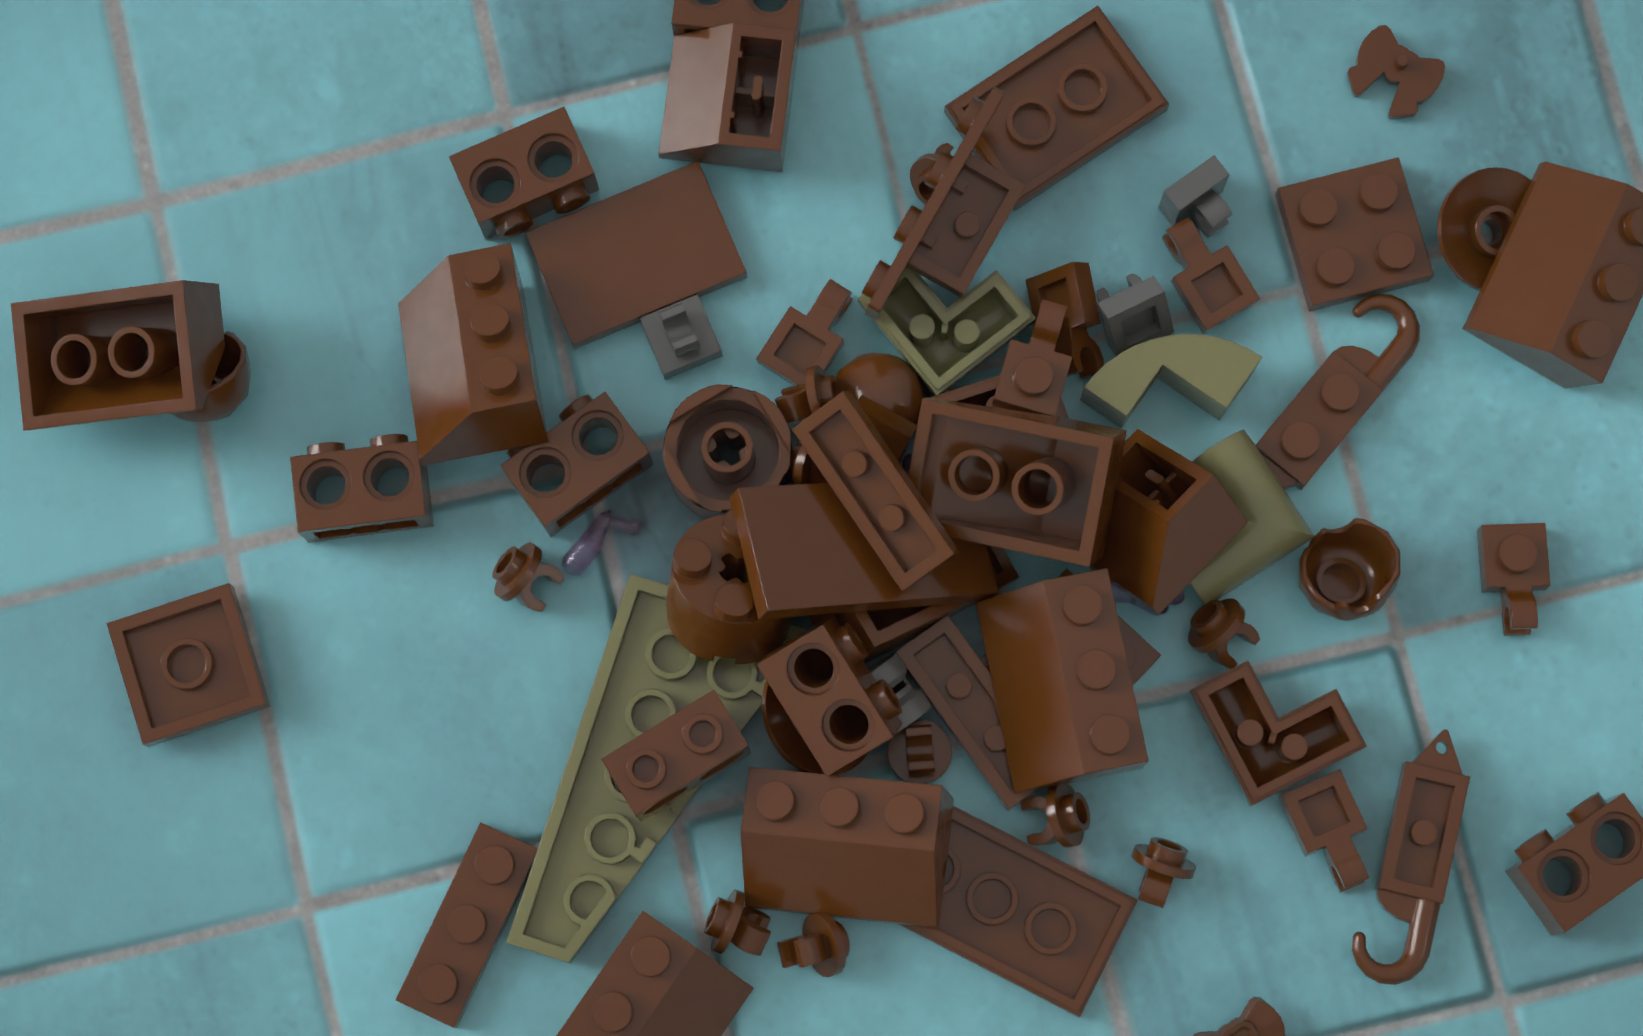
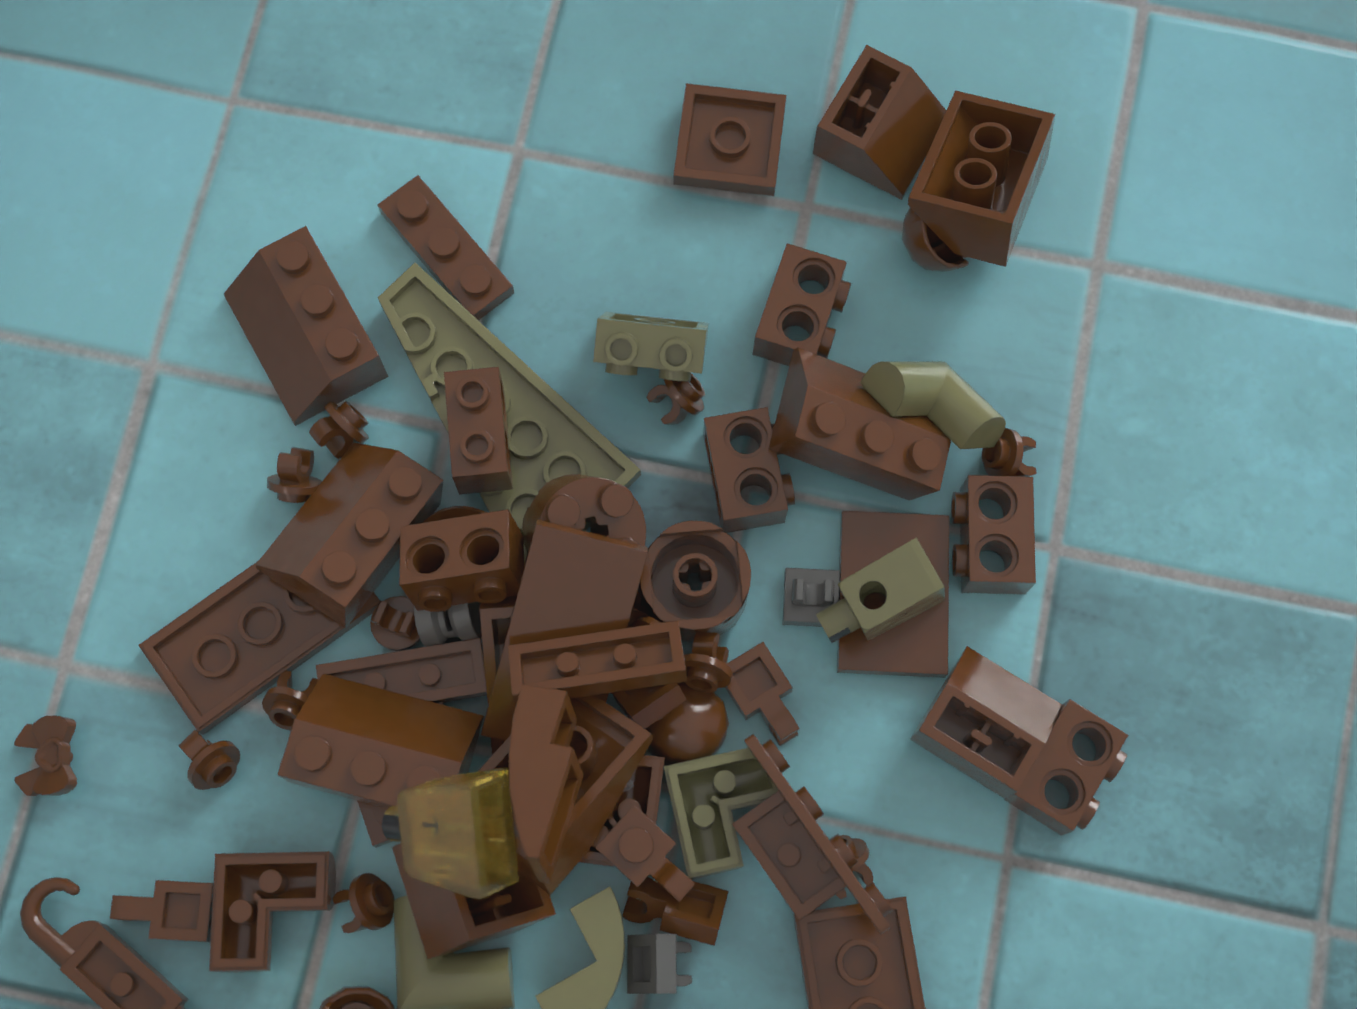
camera: 110 degrees right, 5 degrees down
(96, 501) = (880, 123): none -> reddish brown slope
(399, 291) = (939, 394): none -> olive brick
(429, 202) = (1007, 455): none -> reddish brown plate
(483, 622) = (650, 342): none -> olive plate
(592, 541) = (683, 459): clear purple piece -> none
(638, 224) = (905, 581): none -> olive torso
(1020, 476) = (543, 774): none -> reddish brown slope
(1118, 534) = (457, 832): none -> clear yellow torso

